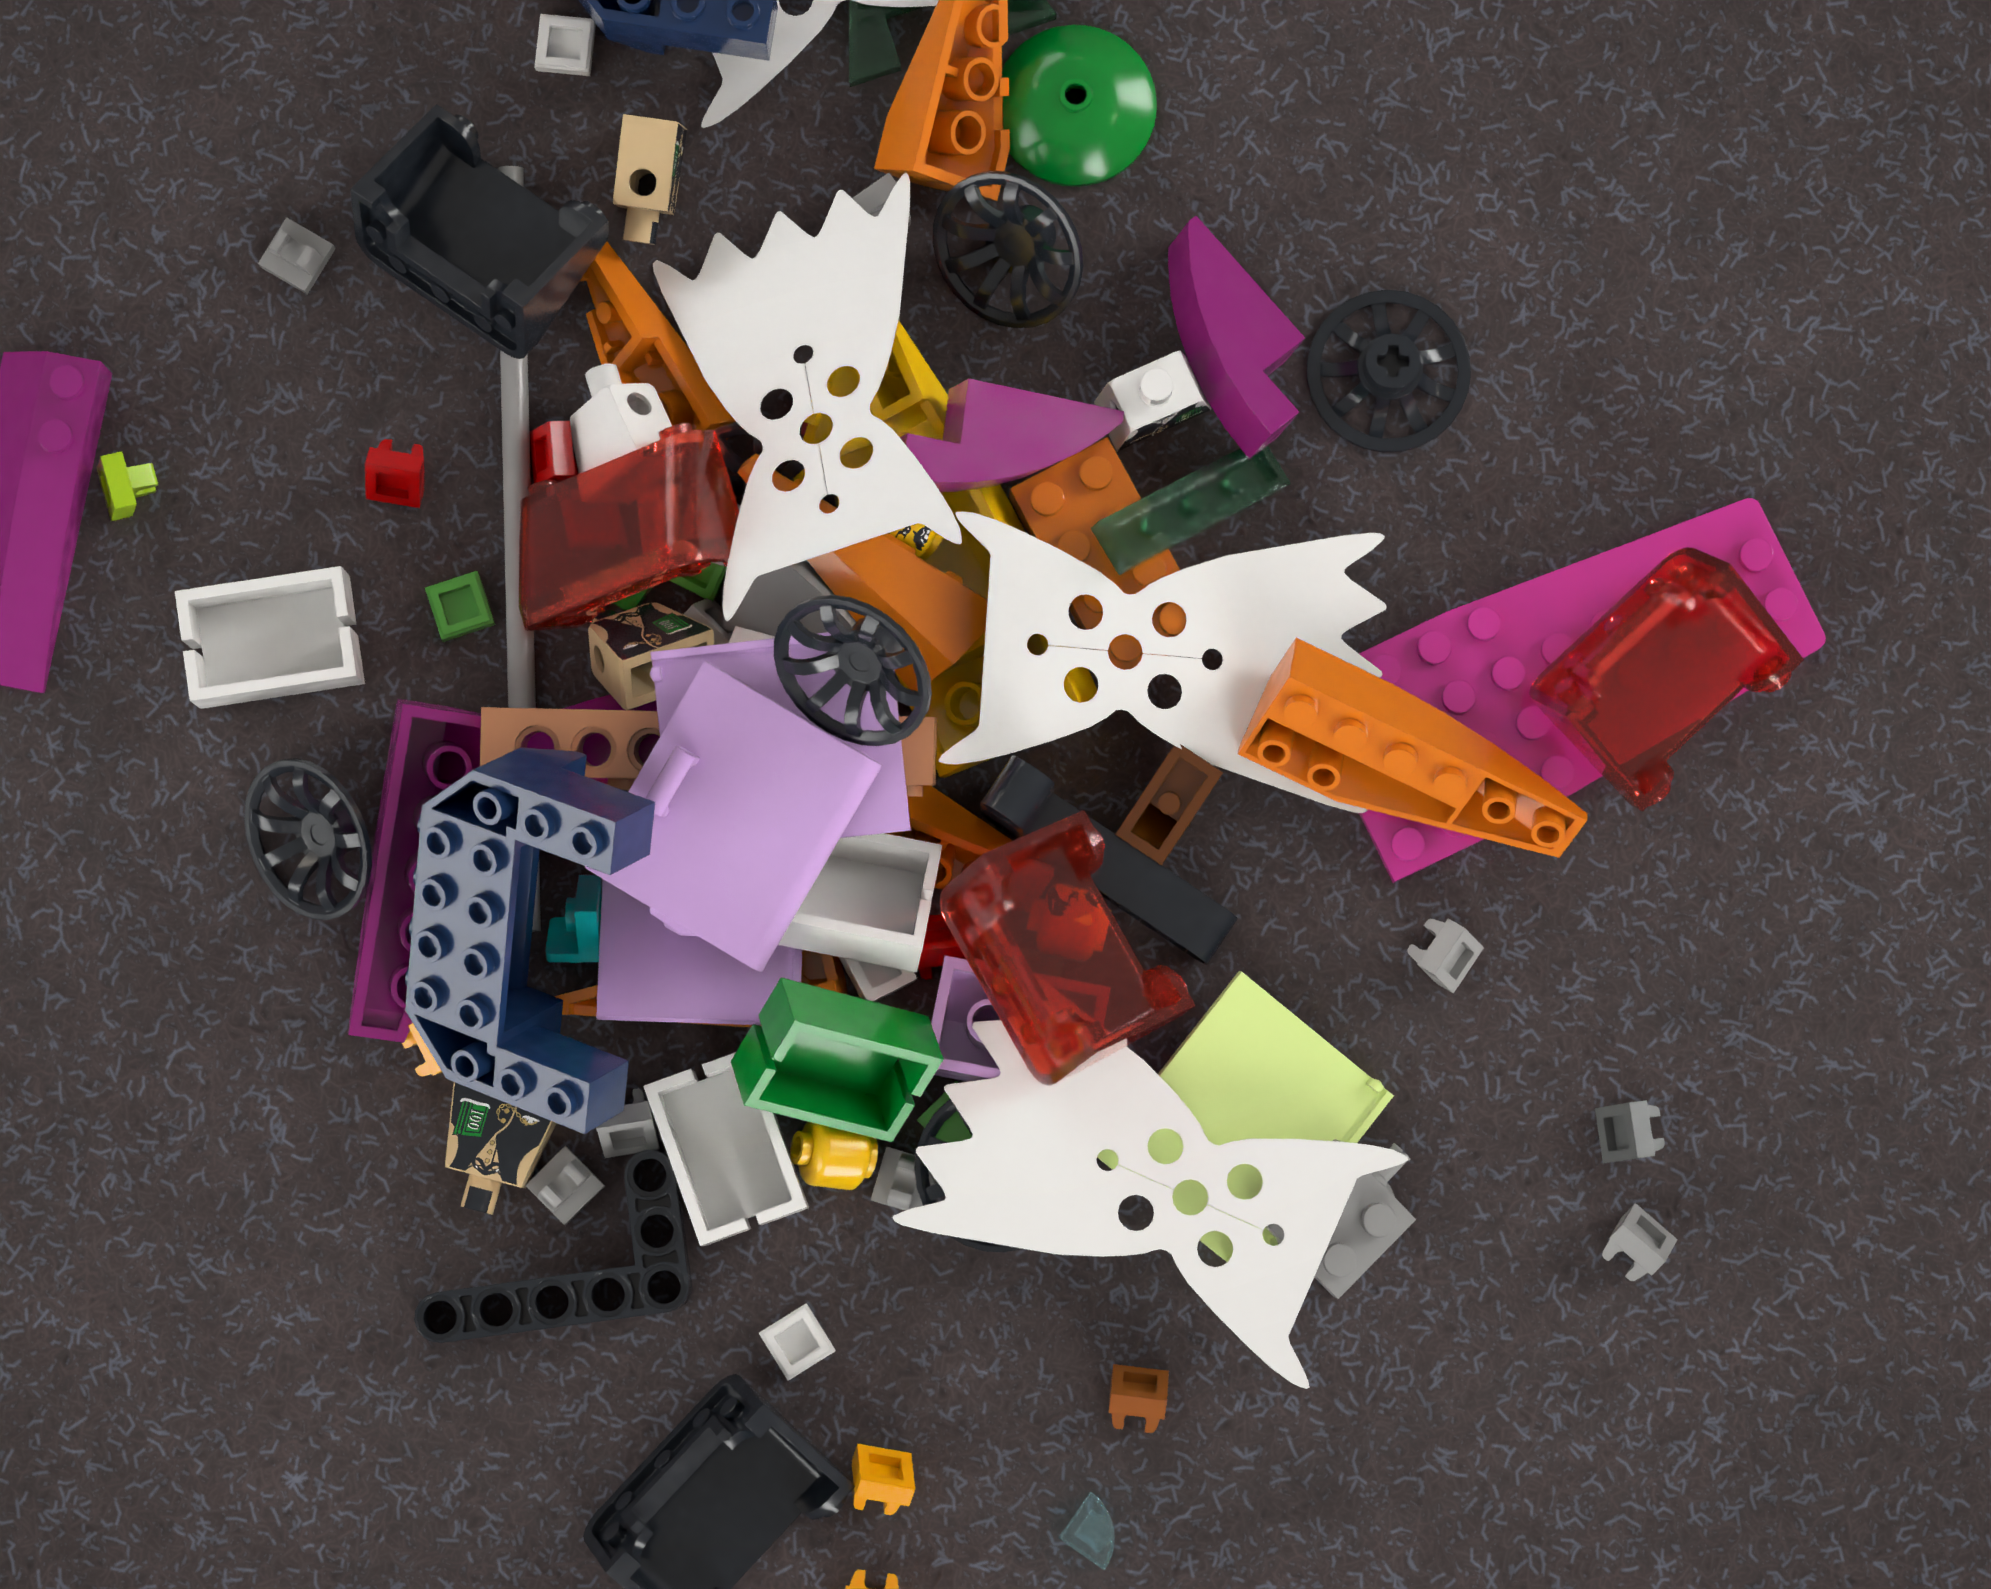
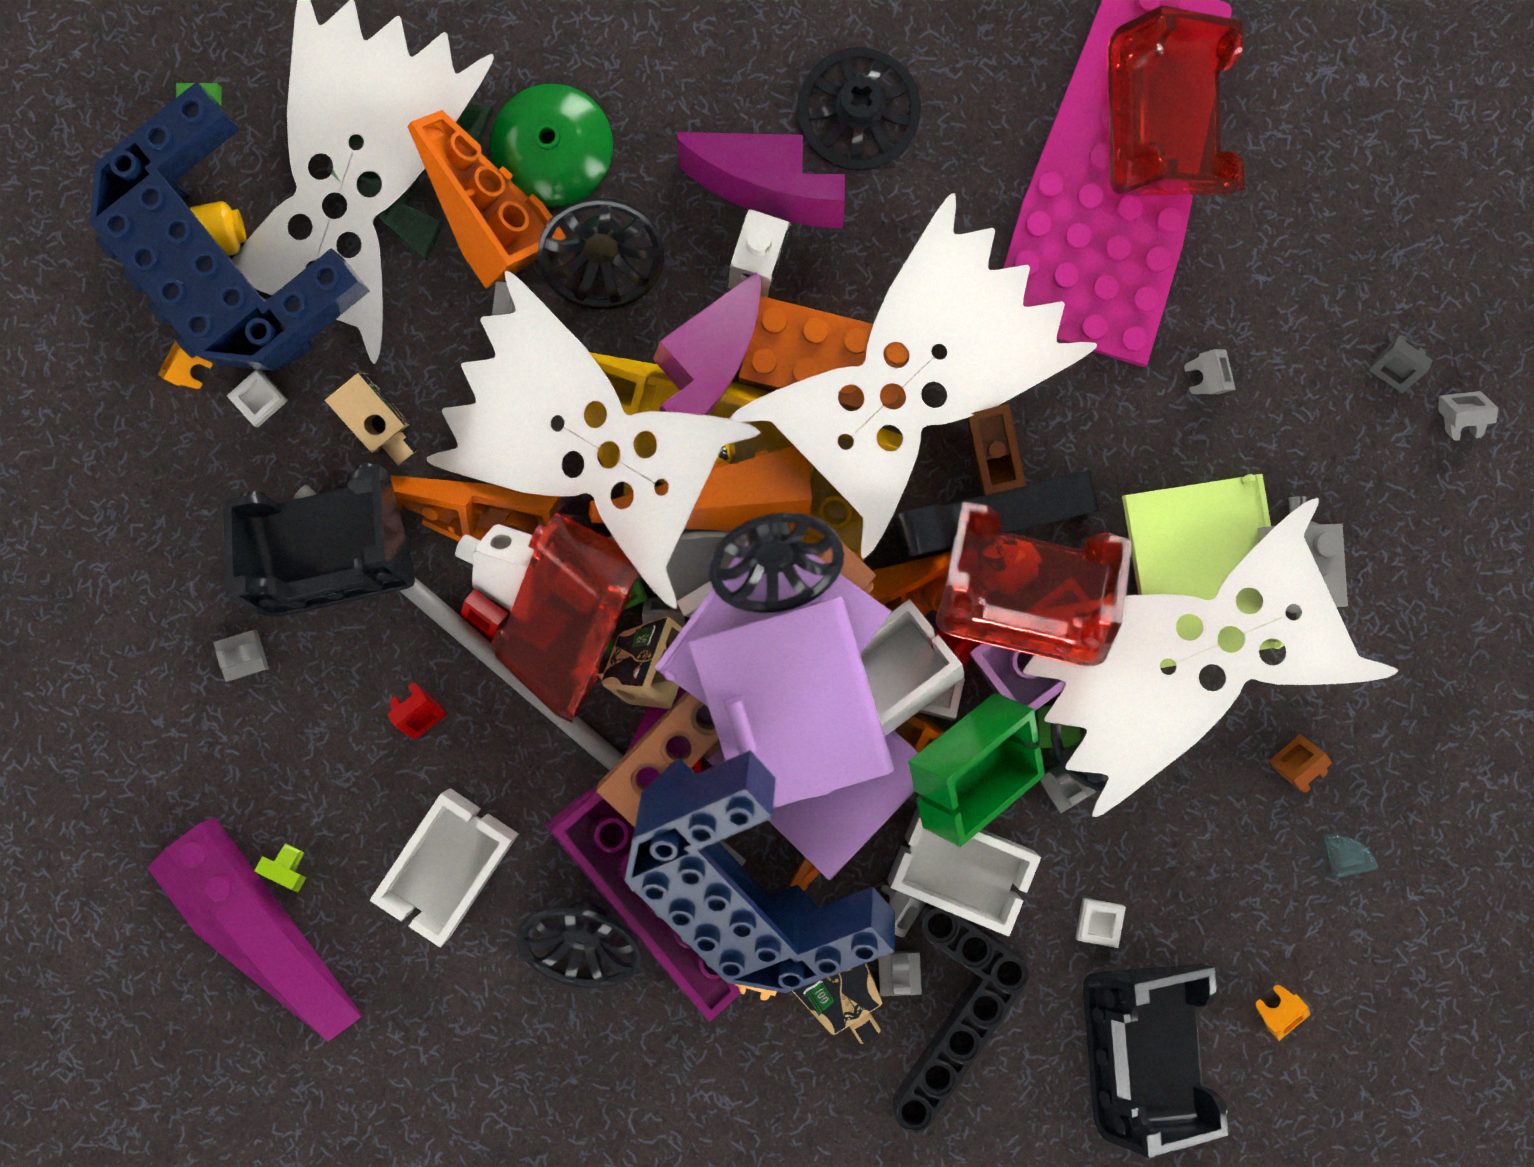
camera: 45 degrees left, 5 degrees up
(460, 606) = (523, 741): bright green tile -> none
(578, 933) = (766, 846): teal bracket -> none
(833, 1156) = (1023, 816): yellow head -> none
(882, 1477) = (1220, 944): light orange tile -> none
(1188, 507) = (840, 288): clear green tile -> none
(1399, 756) = (1086, 297): orange wedge -> none

